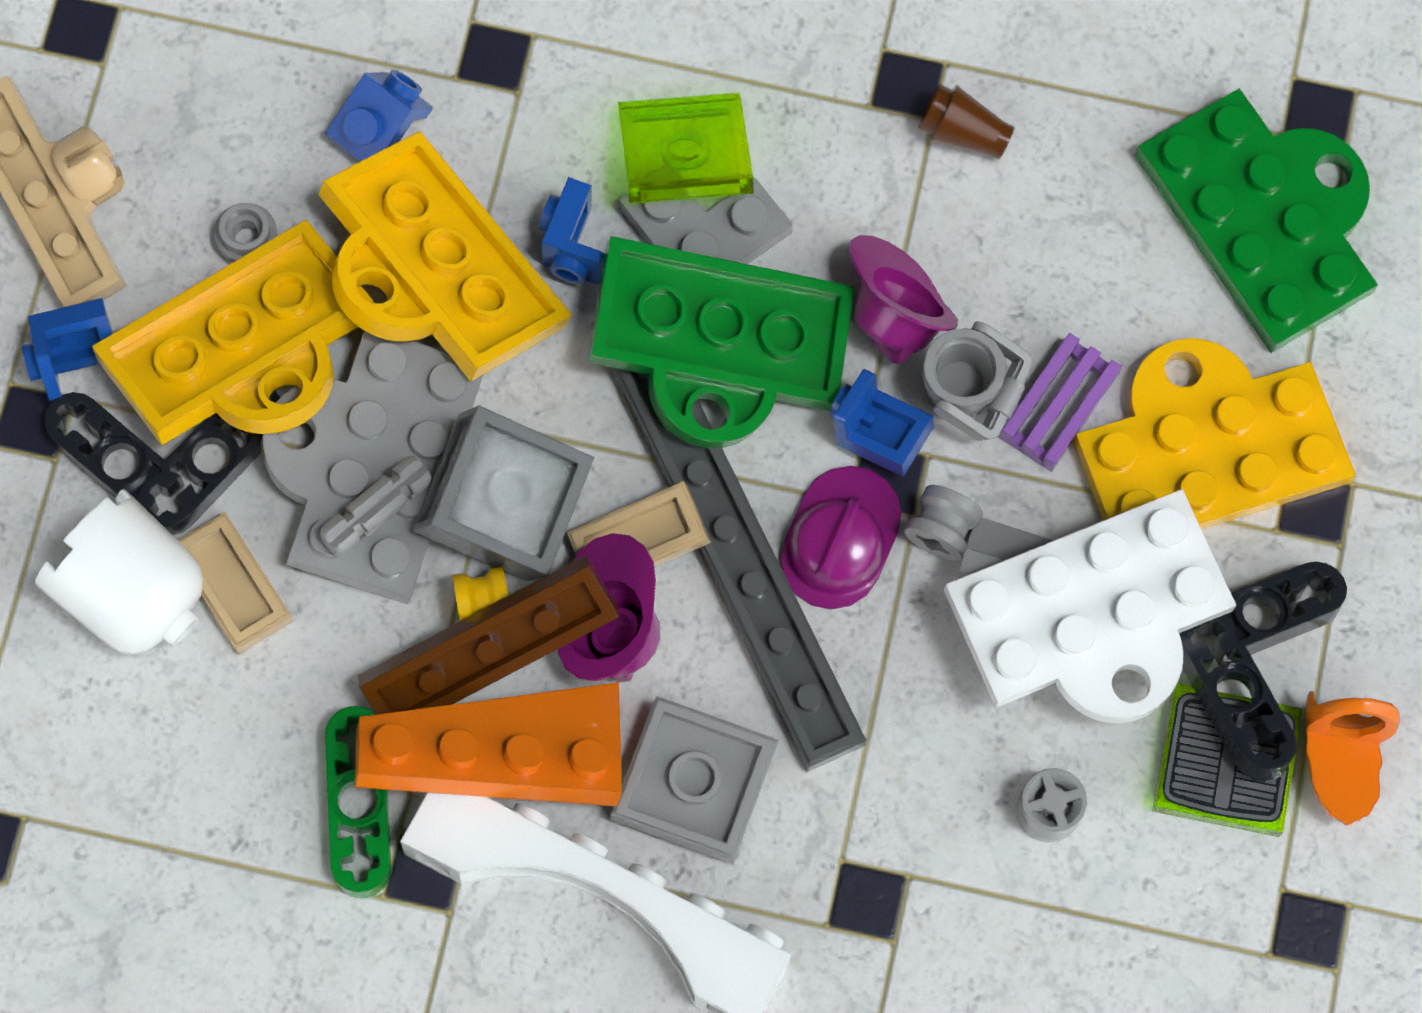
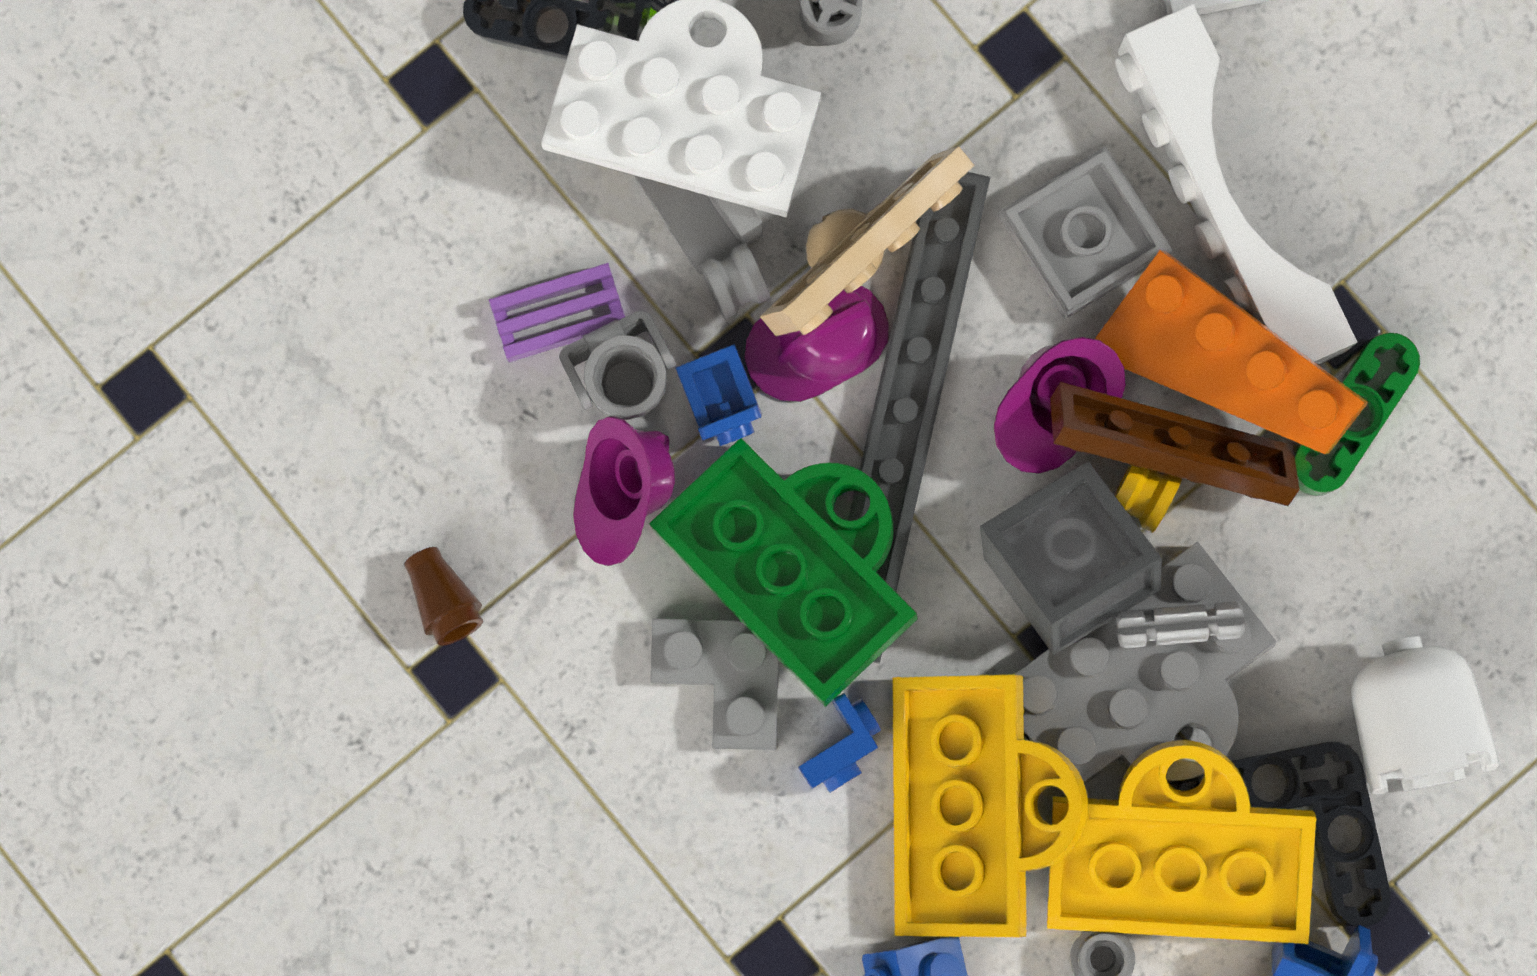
camera: 135 degrees left, 10 degrees up
(235, 585) = (1325, 666): tan tile -> none
(661, 522) = (967, 452): tan tile -> none
(685, 148) = (689, 748): clear neon green tile -> none
(872, 612) = (852, 243): none -> tan plate
(1223, 440) = (469, 187): yellow plate -> none
(1265, 214) = (263, 339): green plate -> none

